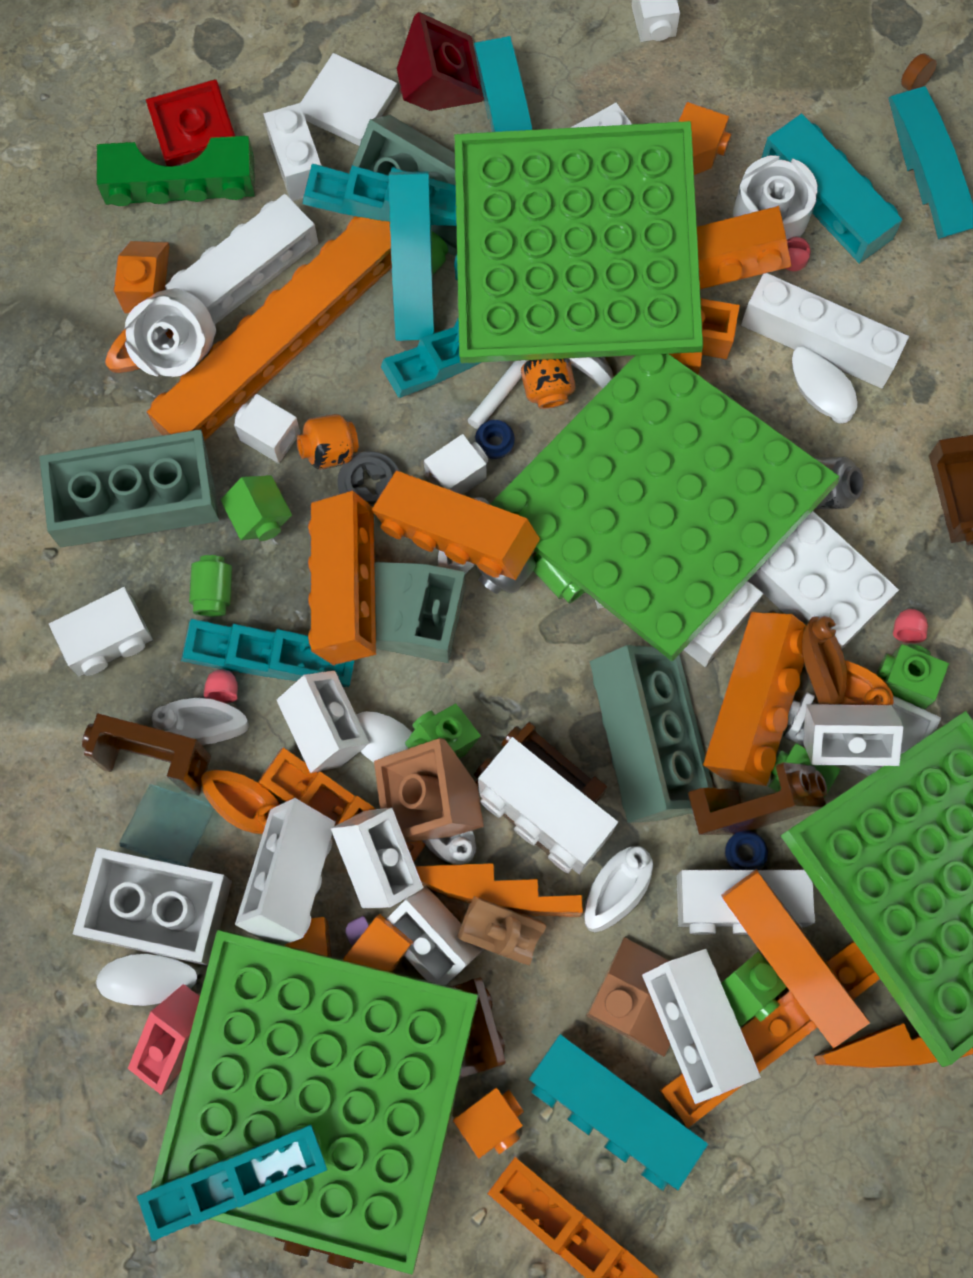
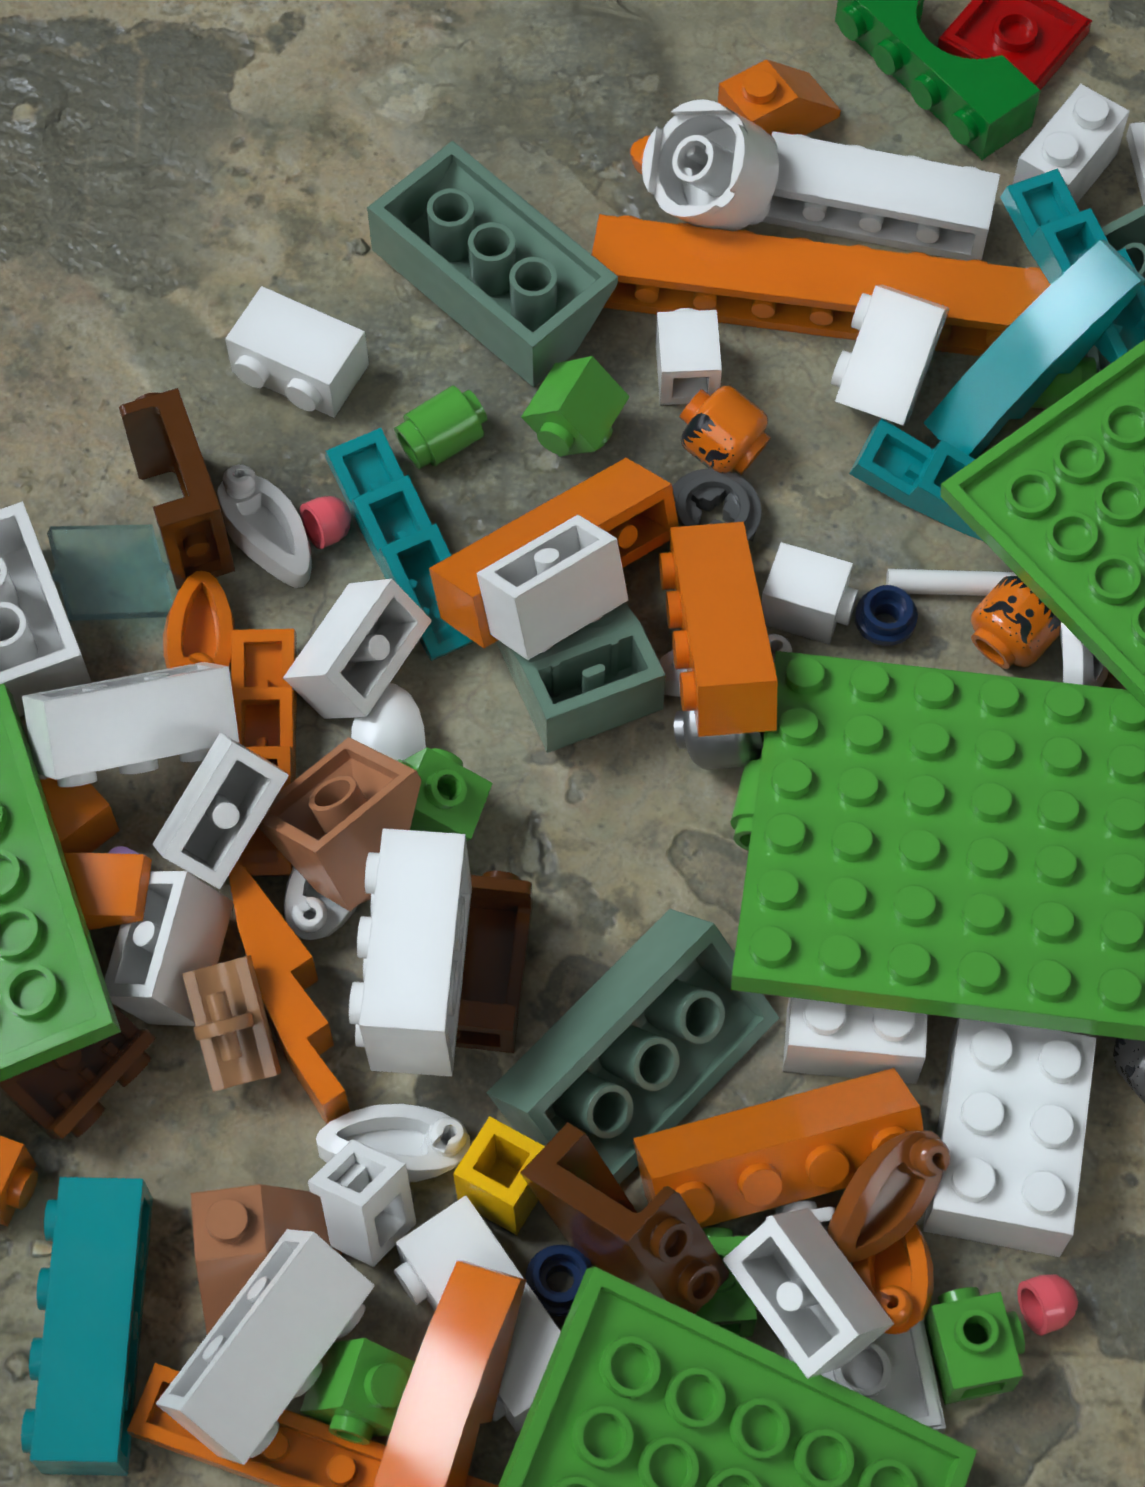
camera: 55 degrees right, 10 degrees down
(352, 326) = (889, 353): none -> white brick
(377, 593) = (553, 586): none -> white brick
(647, 924) = (364, 1201): none -> white brick
(680, 844) = (492, 1175): none -> yellow brick

